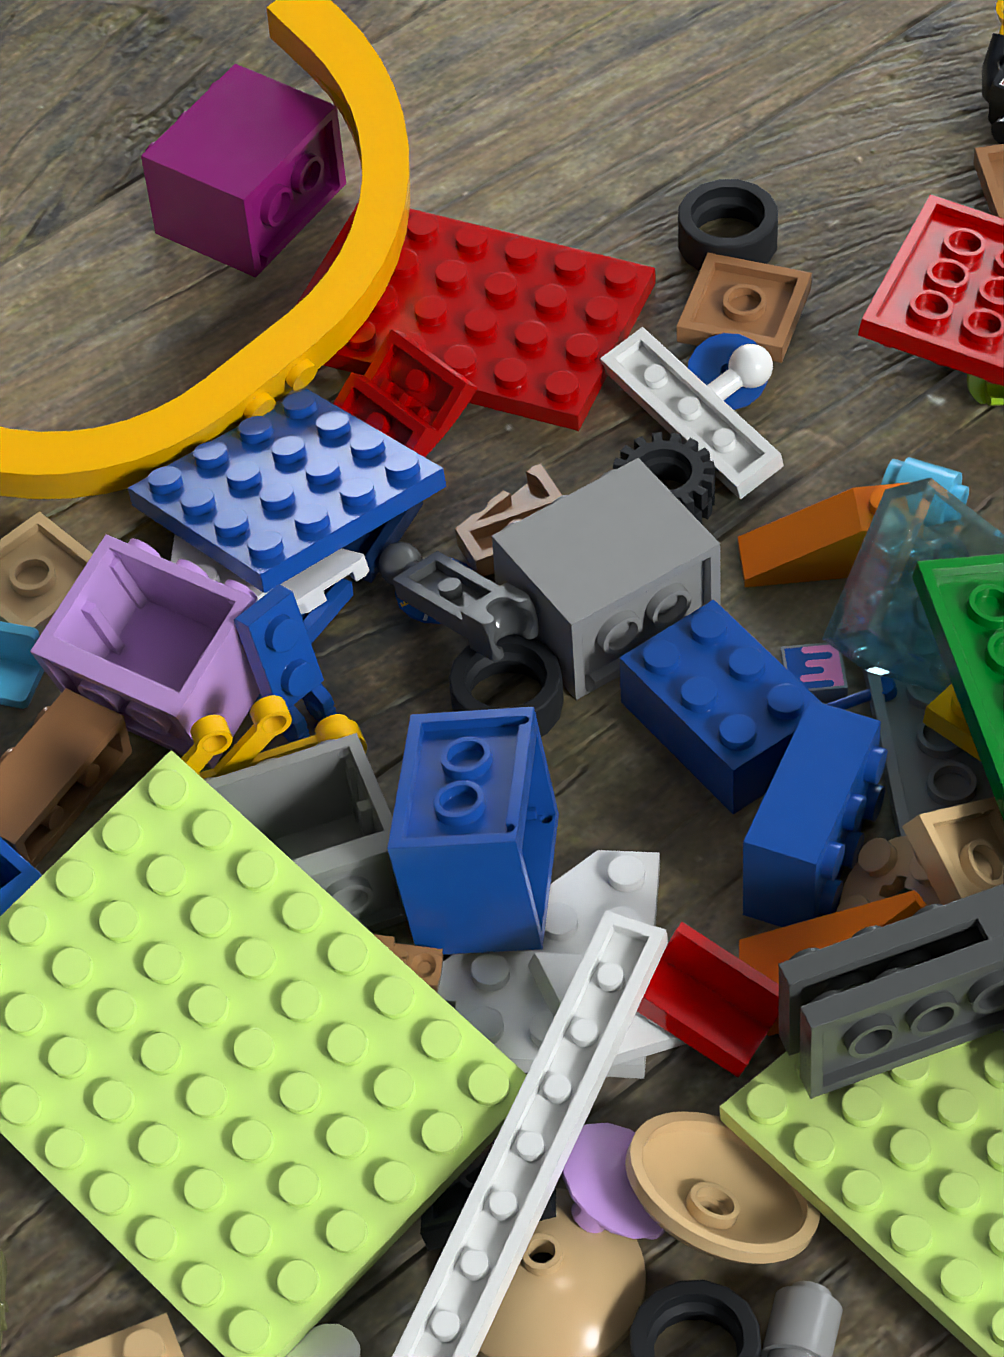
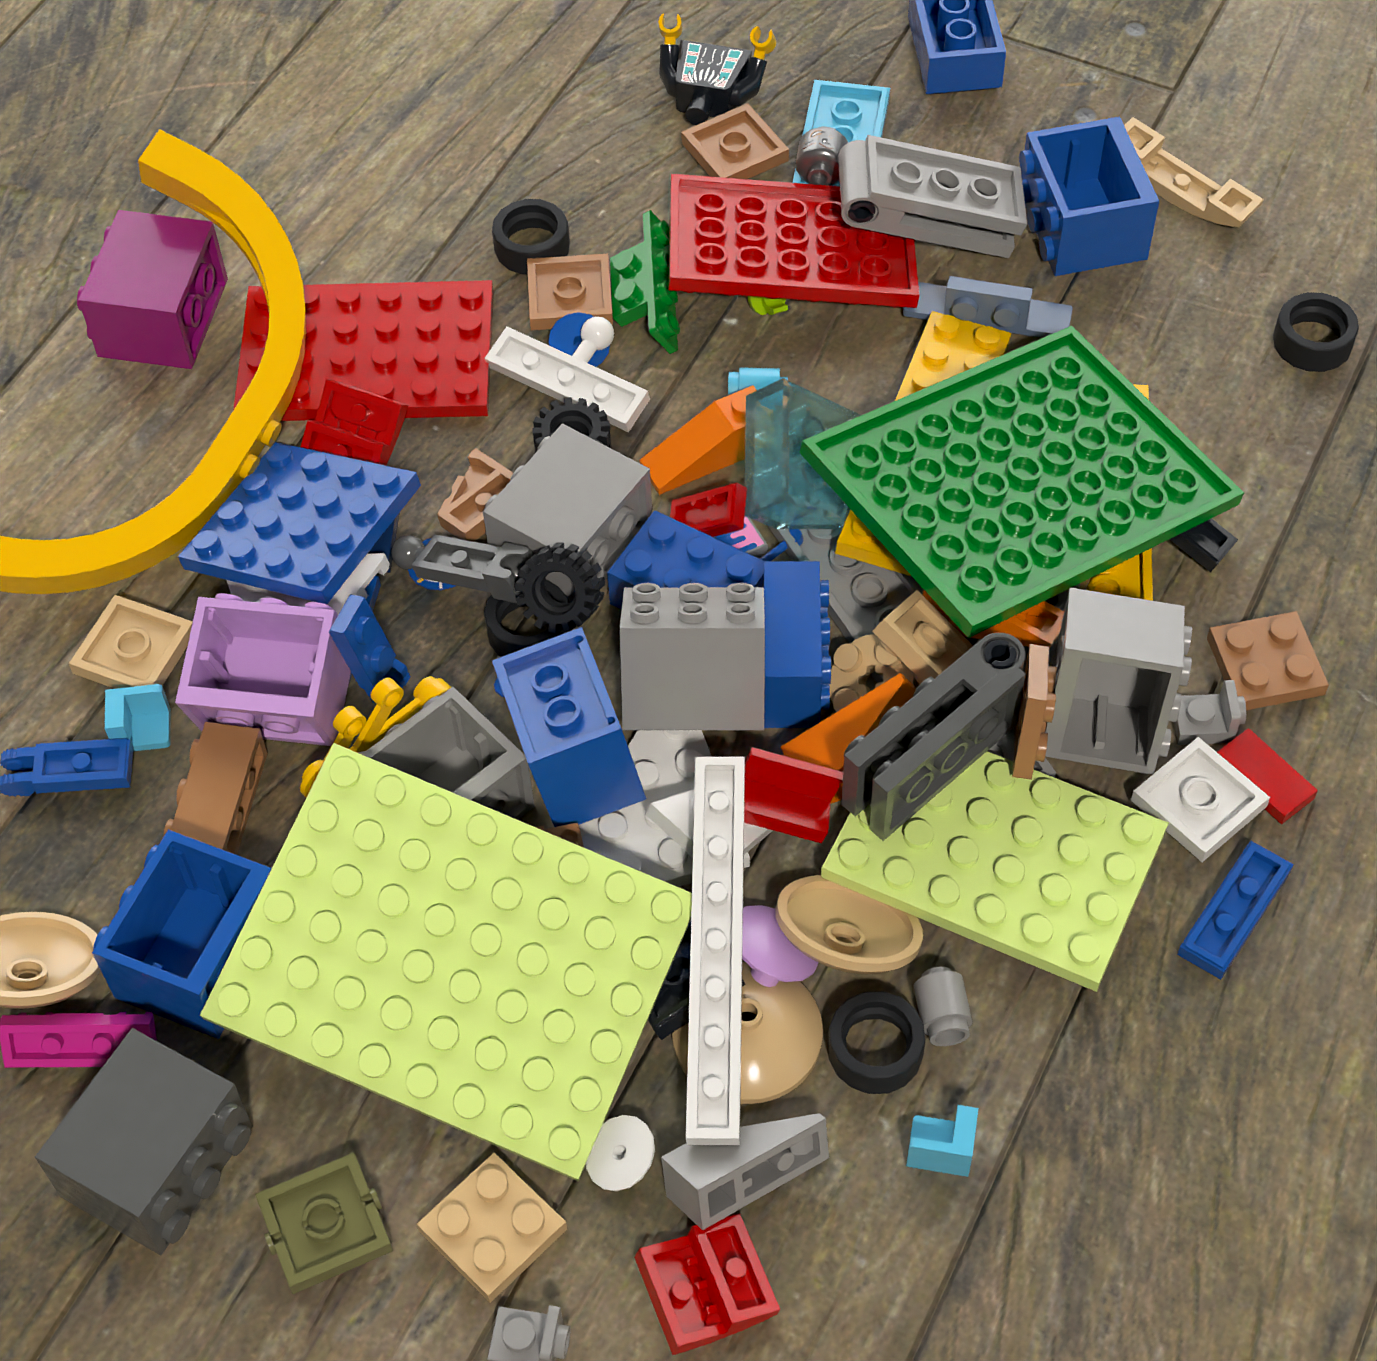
camera: 25 degrees left, 5 degrees up
(571, 647) = (542, 604): none -> black tyre
(665, 790) = (693, 657): none -> light grey container
(788, 622) = (713, 511): none -> red plate
(831, 325) = (642, 284): none -> green bracket

